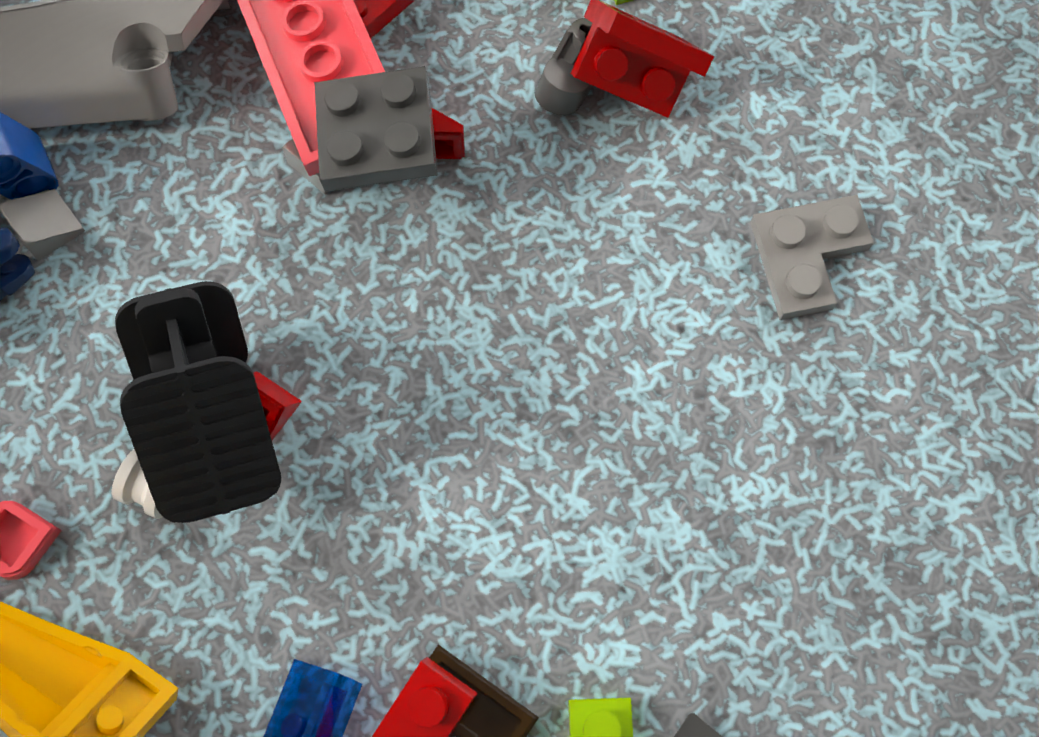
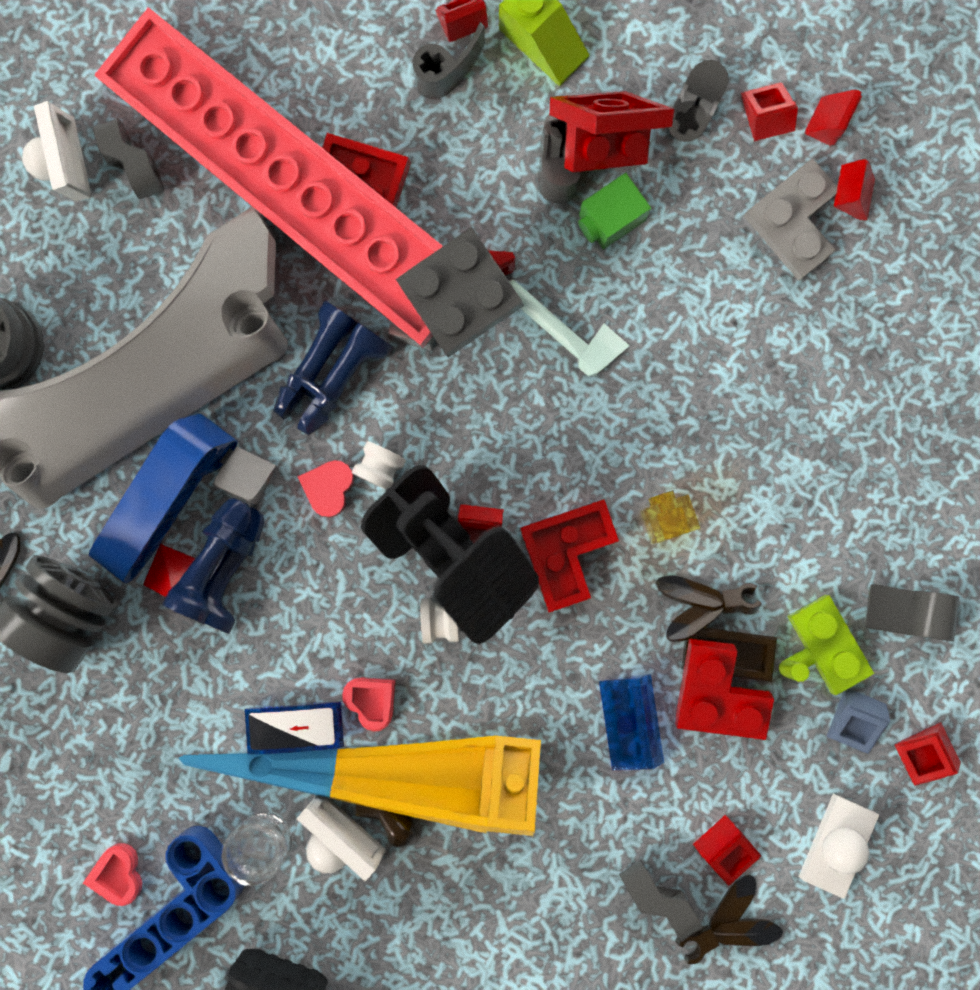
camera: 25 degrees left, 15 degrees up
(121, 276) = (327, 487): none -> coral tile
(160, 177) = (359, 347): none -> dark blue piece
(185, 271) = (378, 465): none -> white wheel
(333, 467) = (555, 547): none -> red plate
(473, 630) = (705, 602): none -> dark brown piece
(482, 500) = (669, 517): none -> clear yellow plate
(496, 286) = (591, 358): none -> light aqua piece
(601, 144) = (613, 212): none -> bright green brick
(755, 79) = (709, 83): none -> dark grey piece
(833, 130) = (770, 111): none -> red slope
(892, 249) = (855, 189): none -> red slope
(903, 165) = (833, 116): none -> red slope

